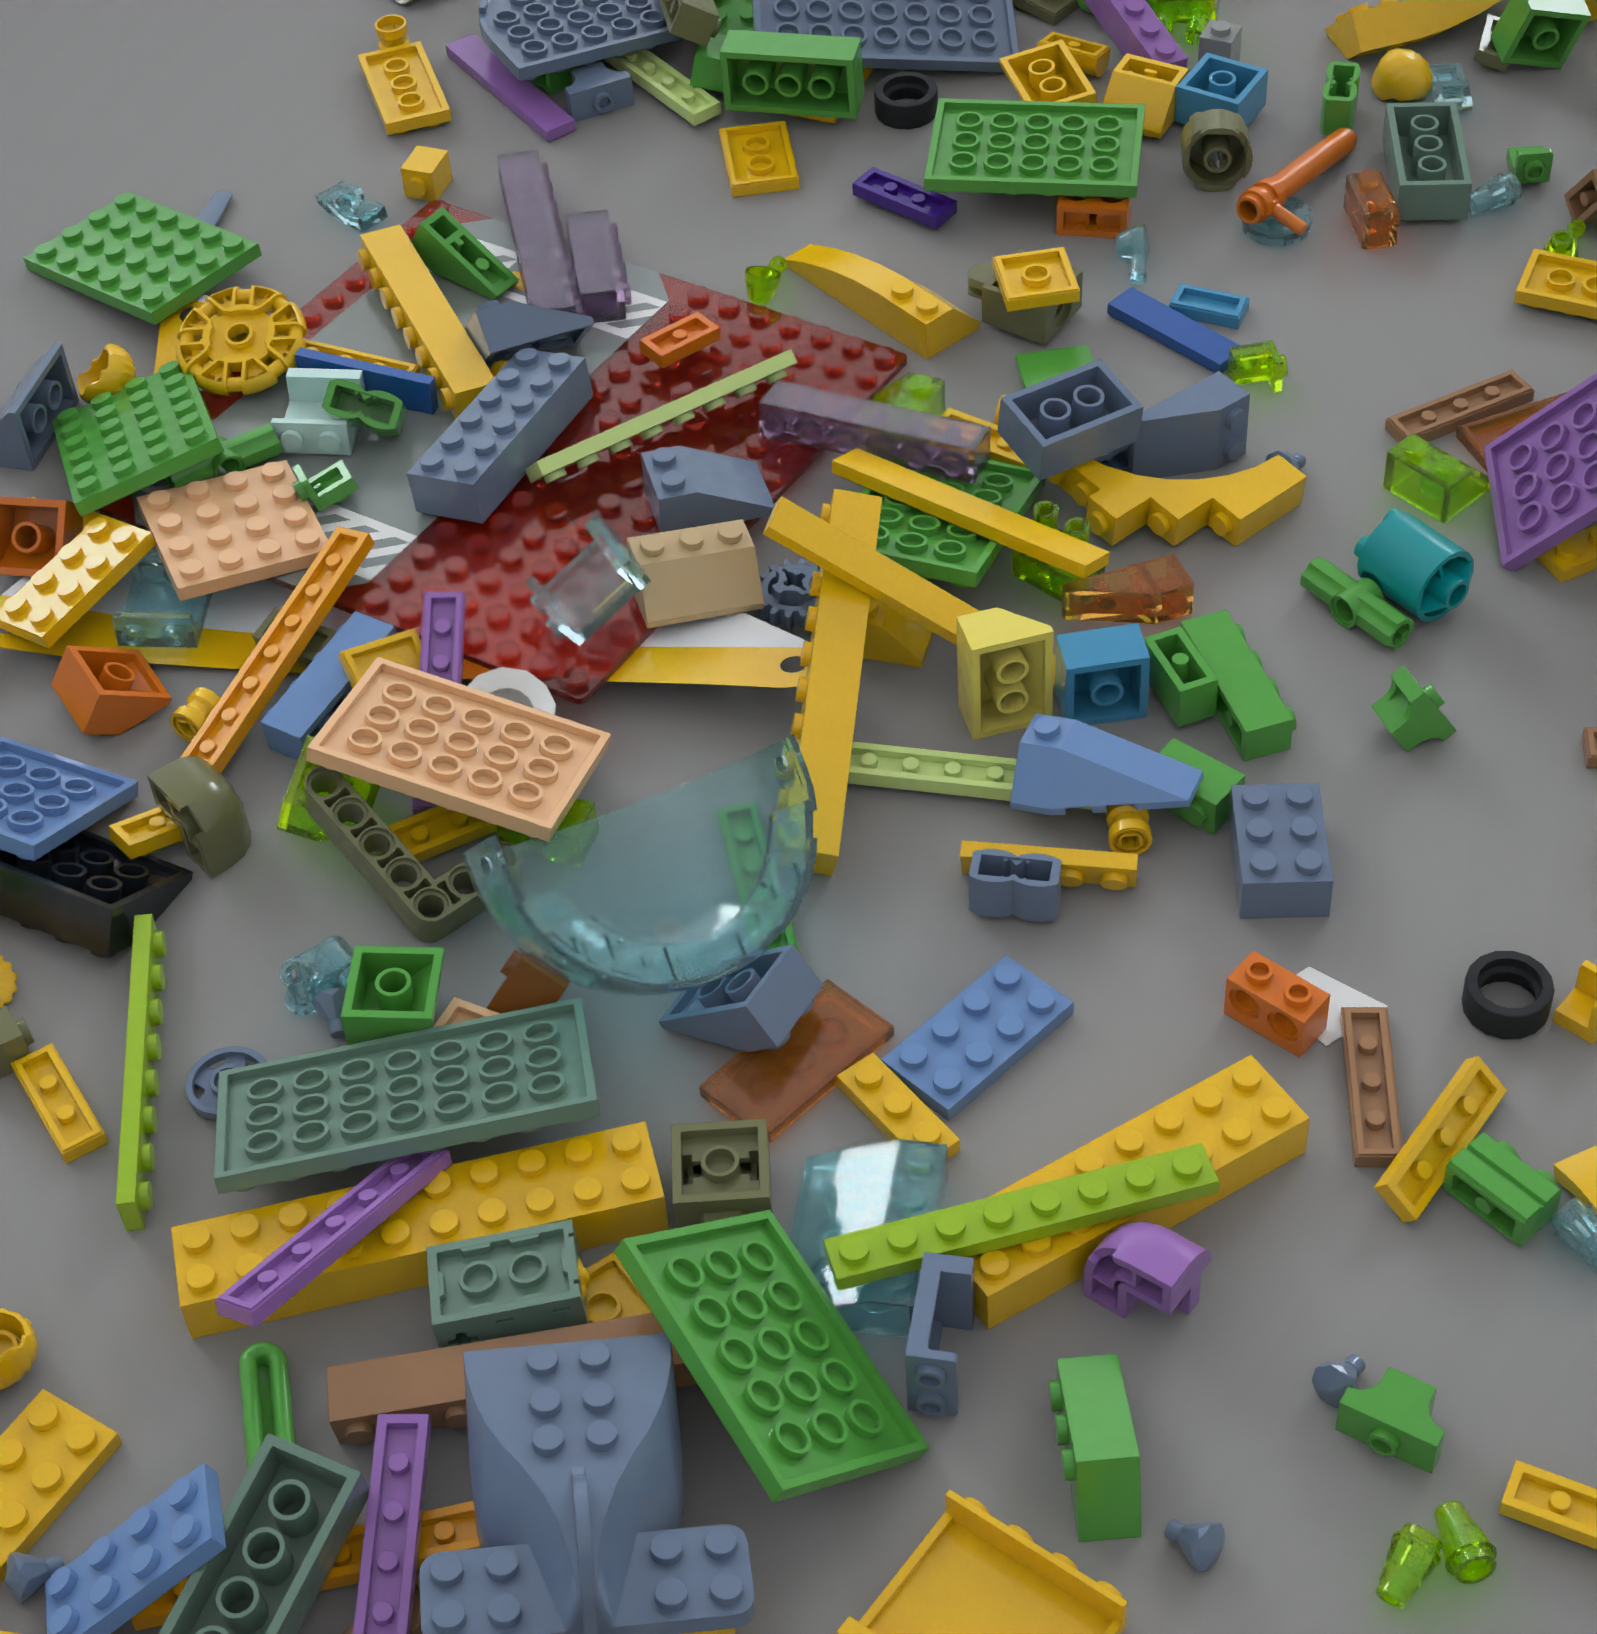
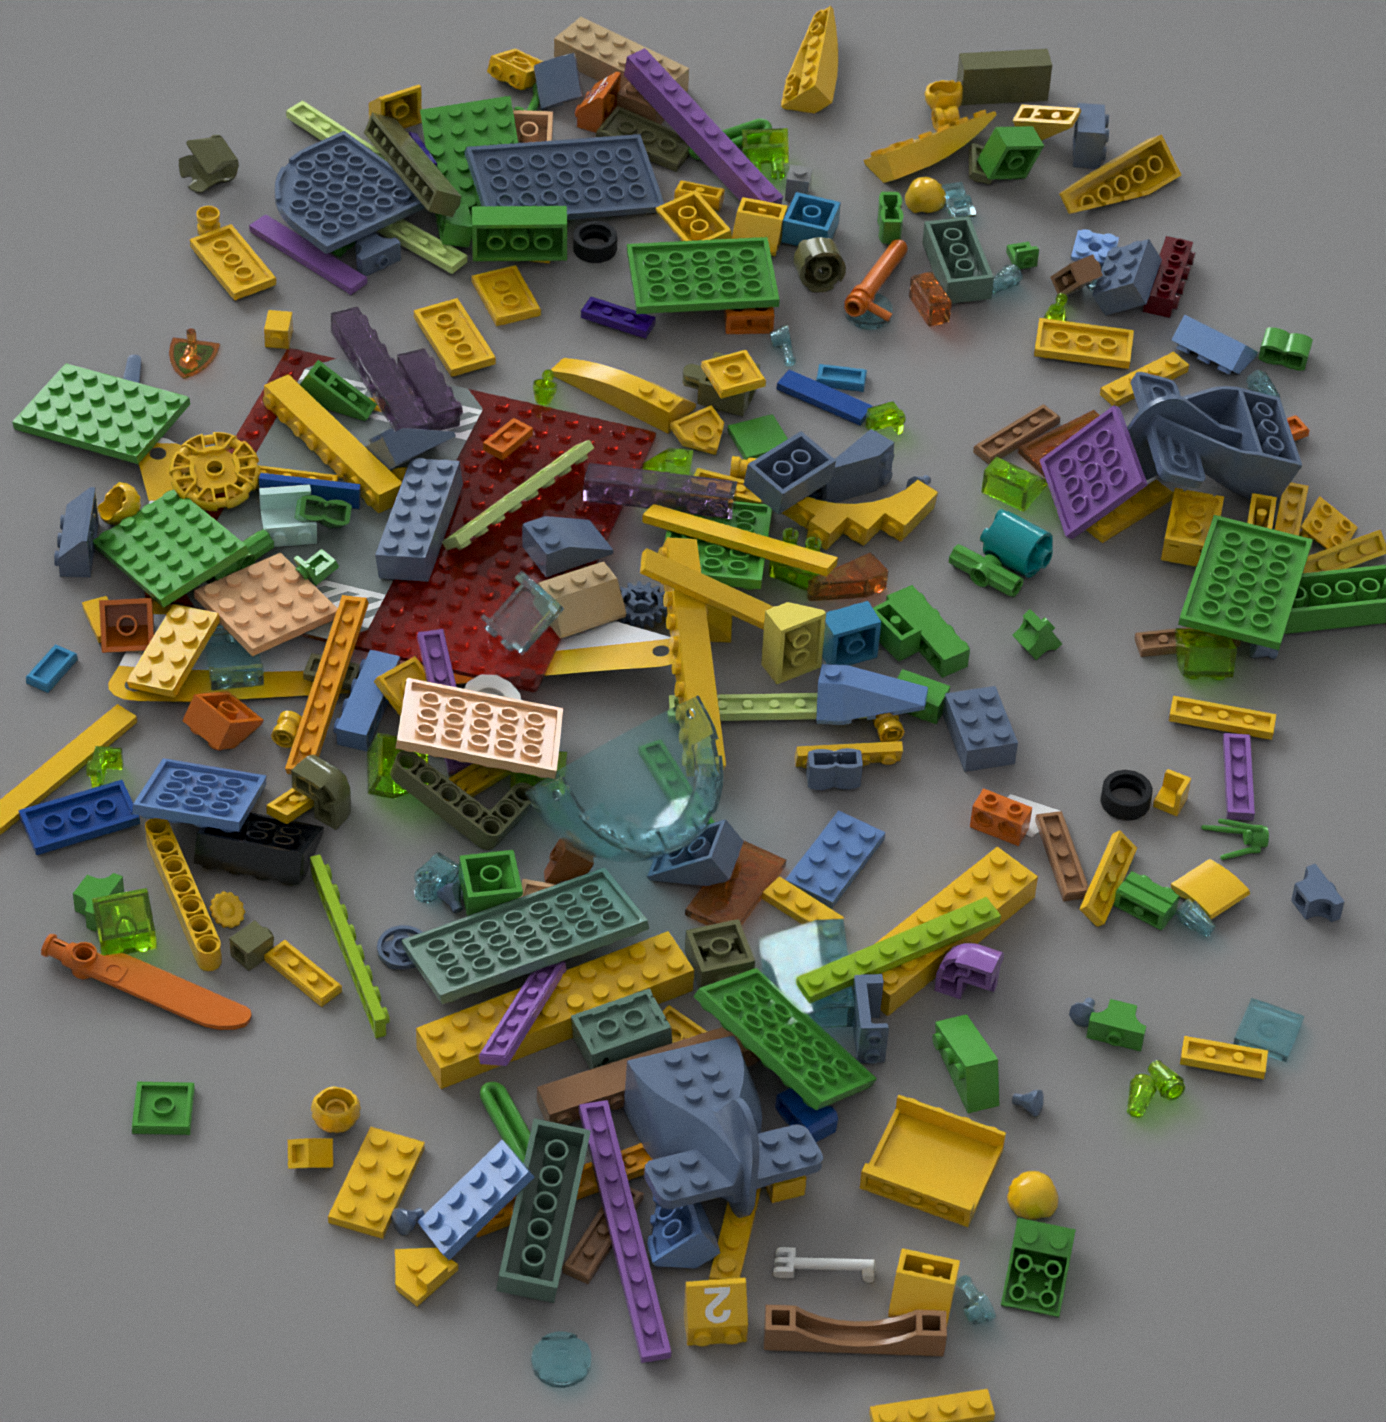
camera: 20 degrees left, 0 degrees up
(295, 196) = (191, 355): none -> clear orange shield
(350, 207) = (230, 359): clear light blue slope -> none
(664, 204) = (454, 337): none -> yellow plate
(786, 1522) = (795, 1112): none -> blue brick
(971, 356) = (699, 430): none -> yellow plate

